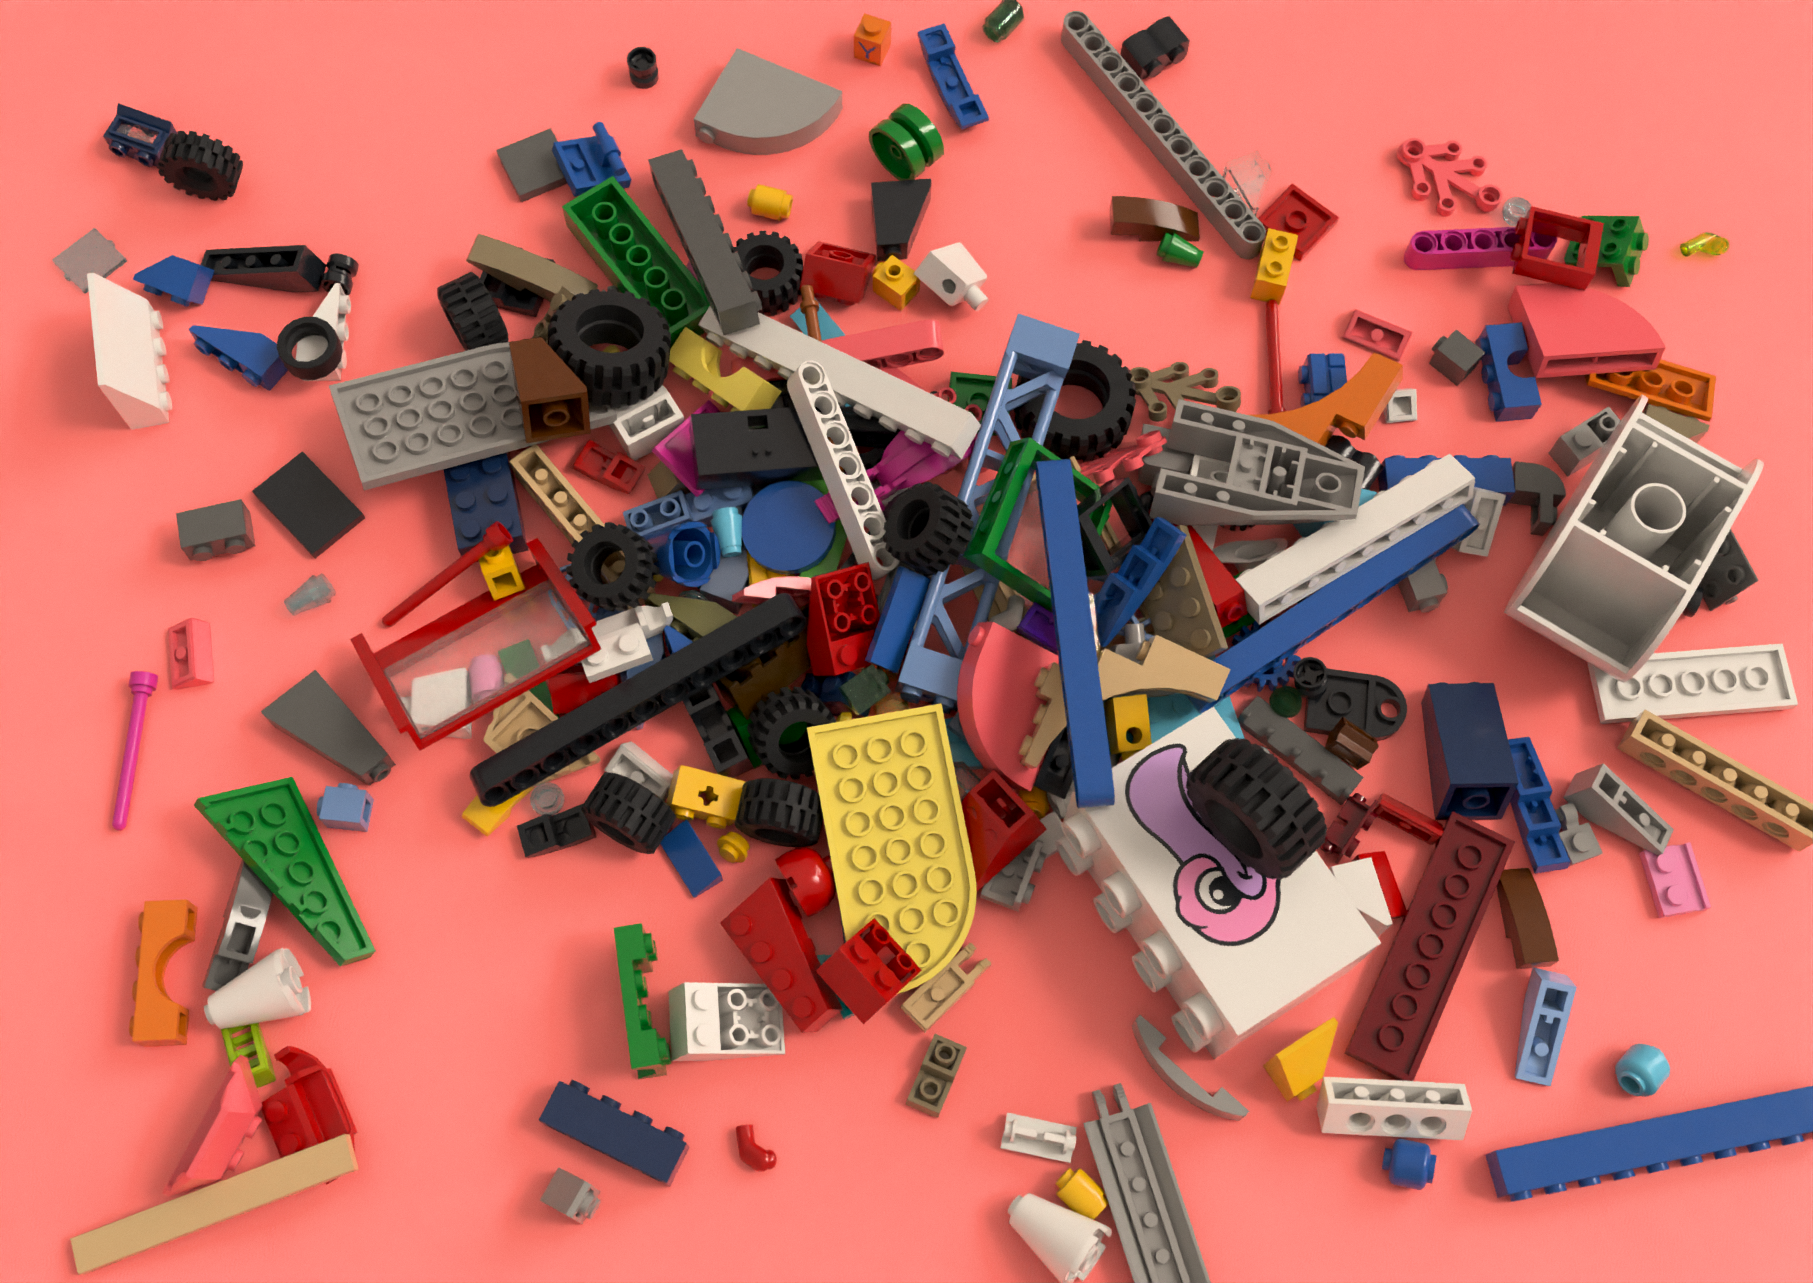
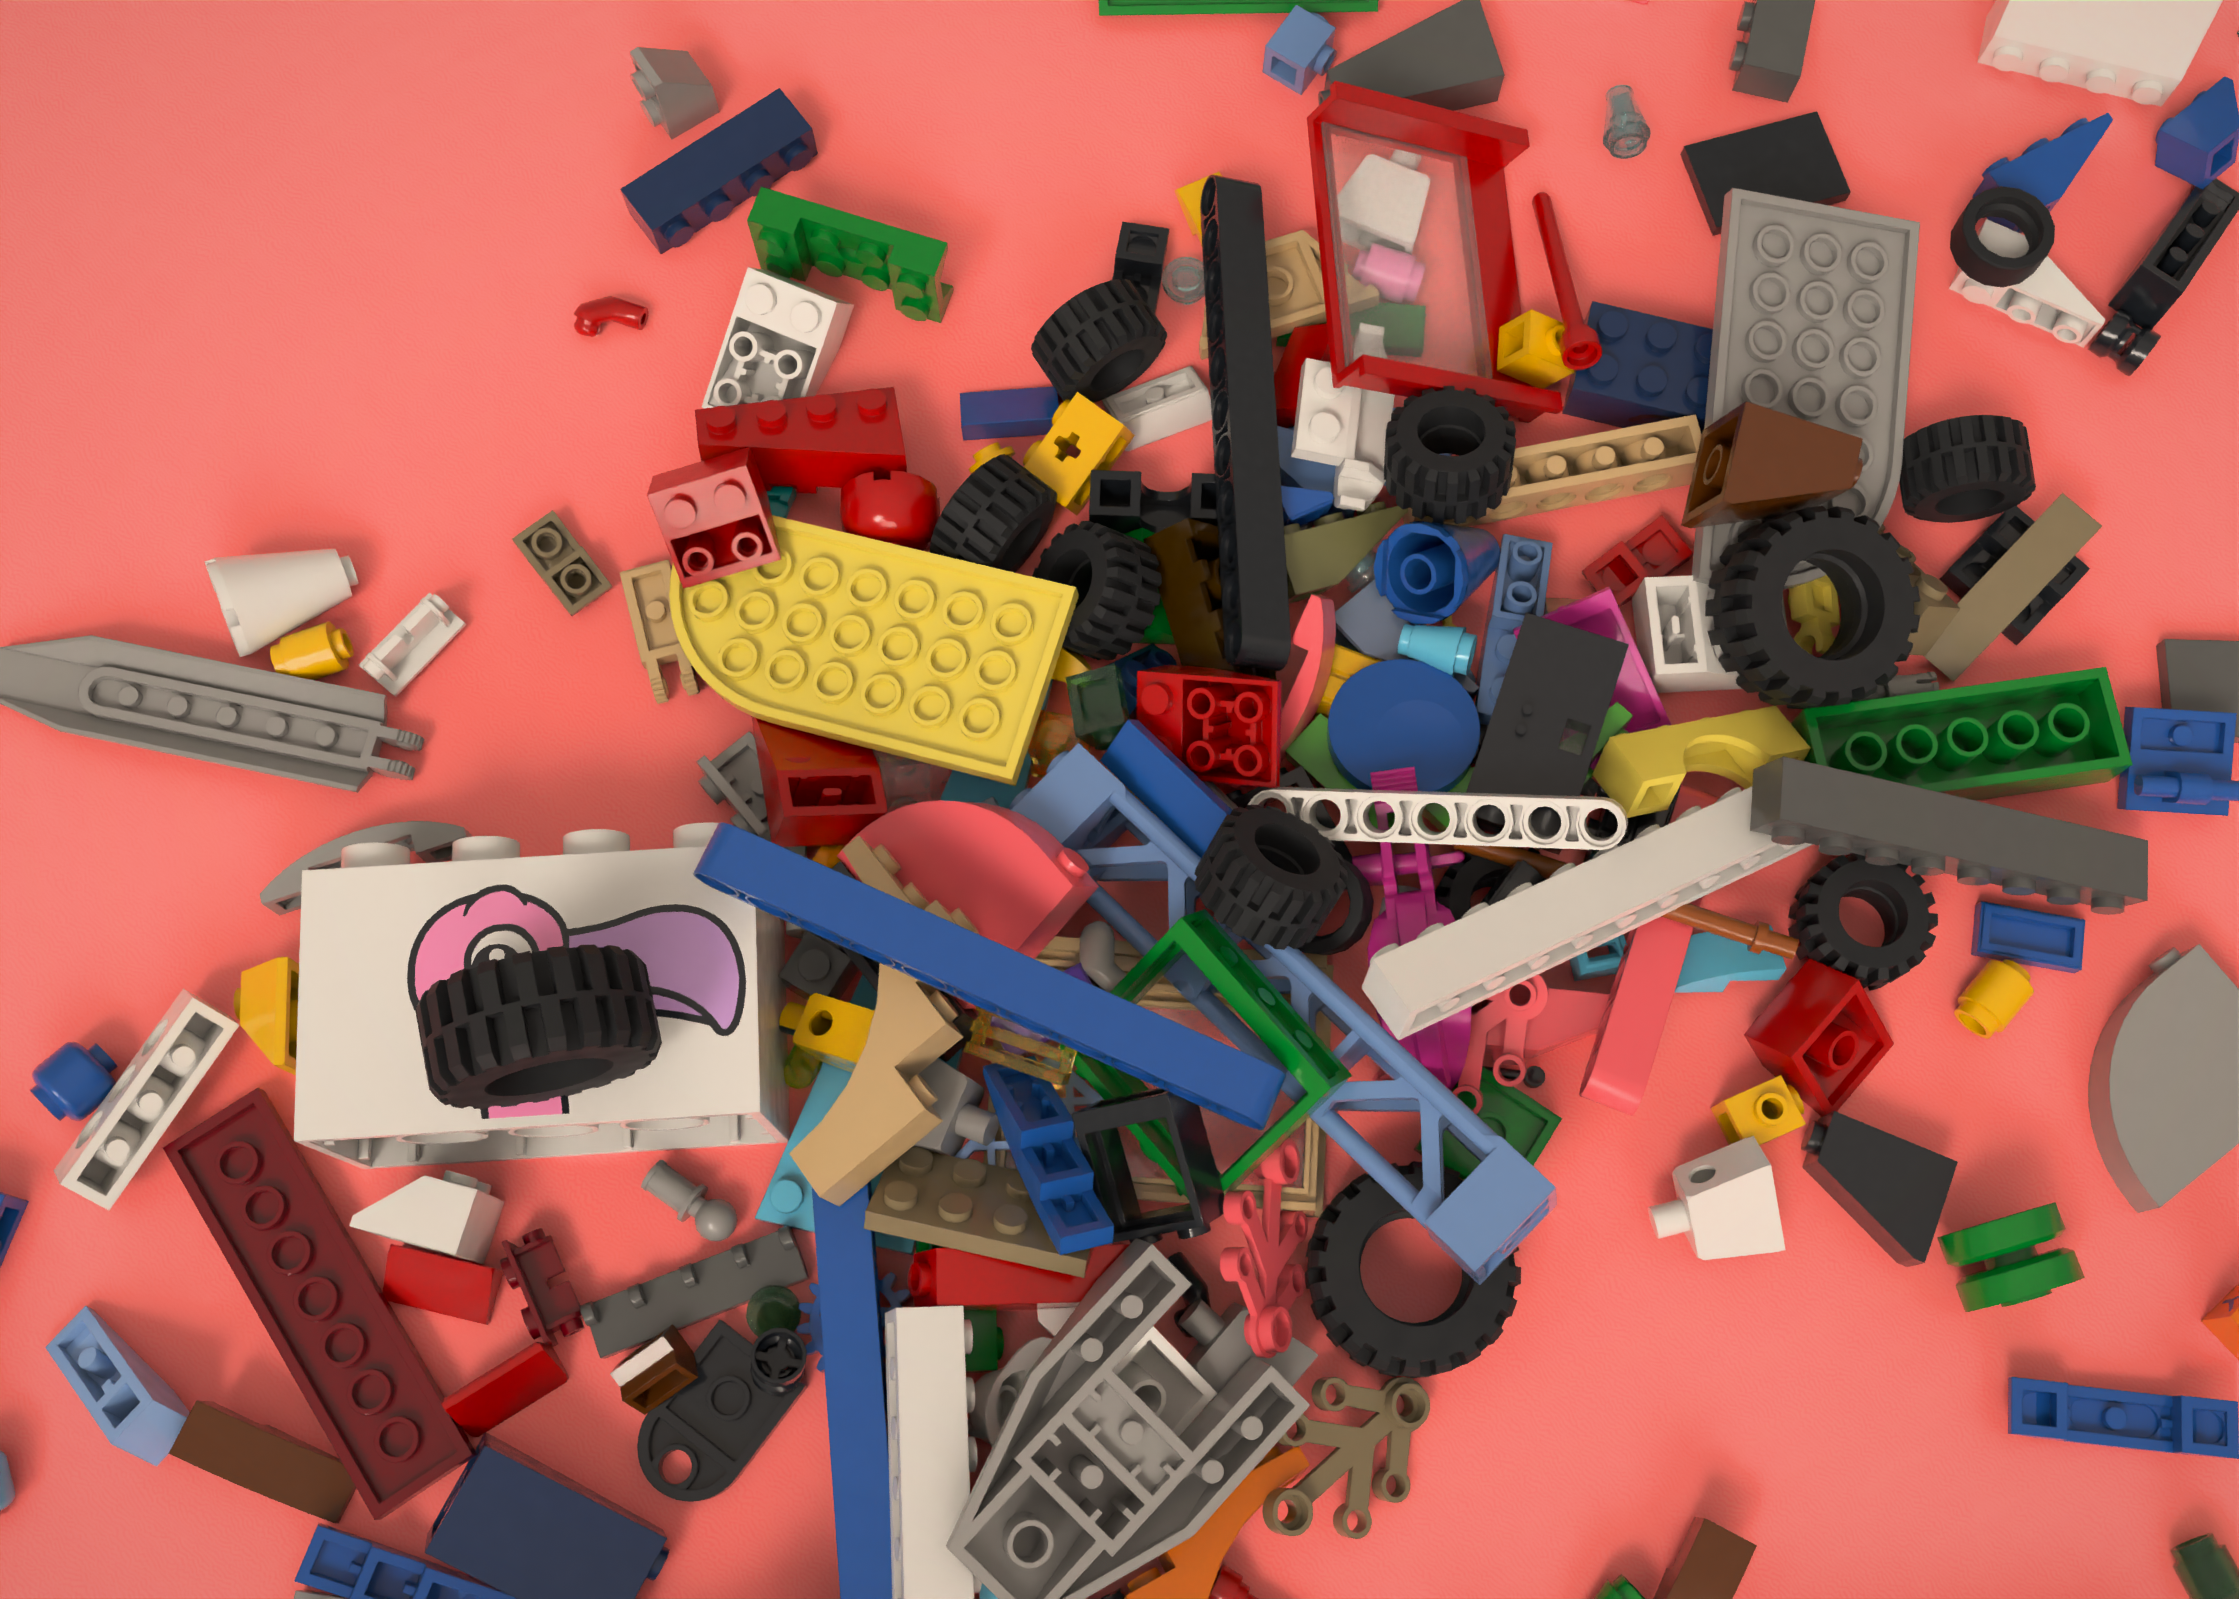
camera: 120 degrees right, 5 degrees up
(726, 200) = (2028, 937): none -> blue tile

